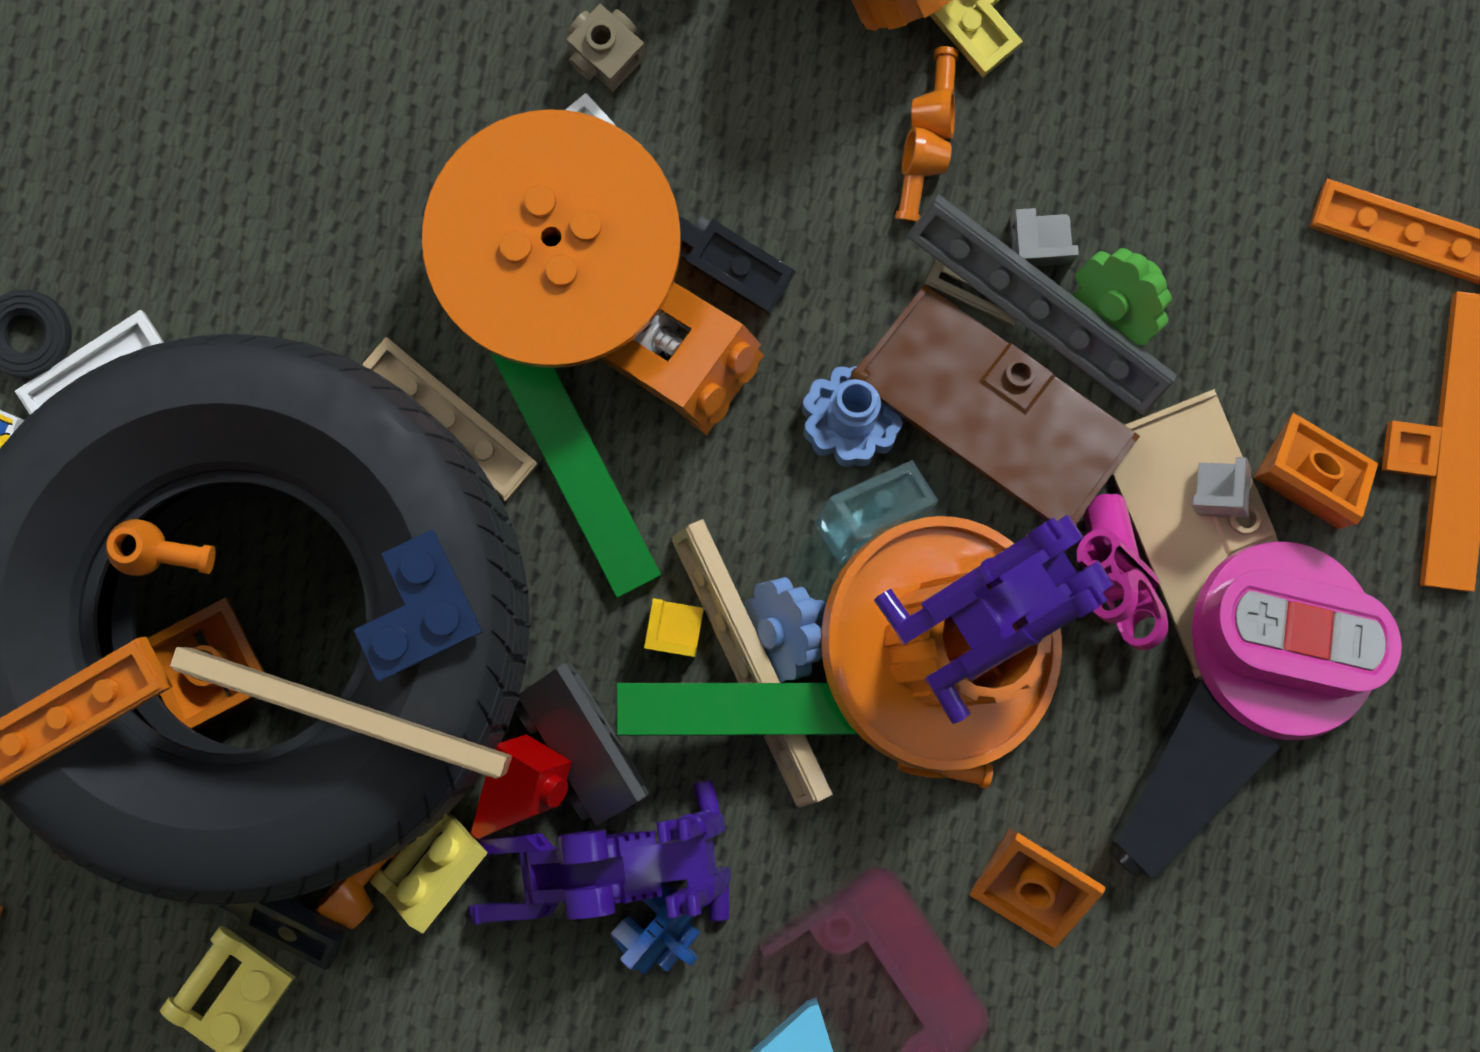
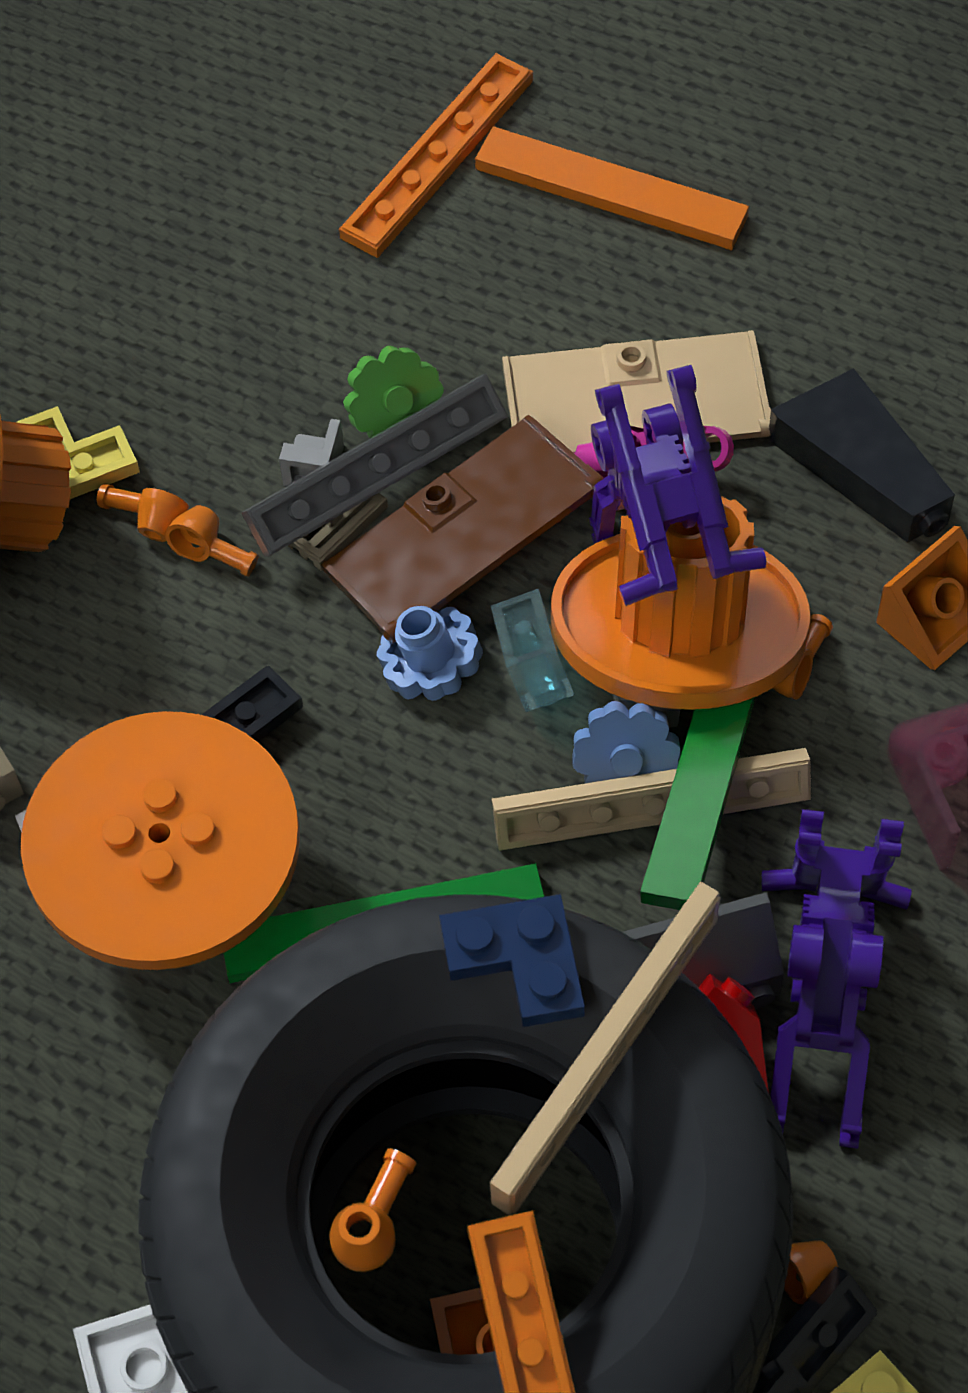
camera: 70 degrees left, 25 degrees down
(436, 875) = (816, 1162): light yellow plate -> none
(661, 941) = (919, 974): blue hips -> none
(674, 628) = (595, 866): yellow panel -> none
(704, 366) = (351, 761): orange brick -> none
(1223, 489) = (599, 356): light grey panel -> none
(1291, 640) = (758, 337): dark pink piece -> none
(1318, 473) = (609, 296): orange slope -> none
(1411, 449) = (605, 225): orange tile -> none

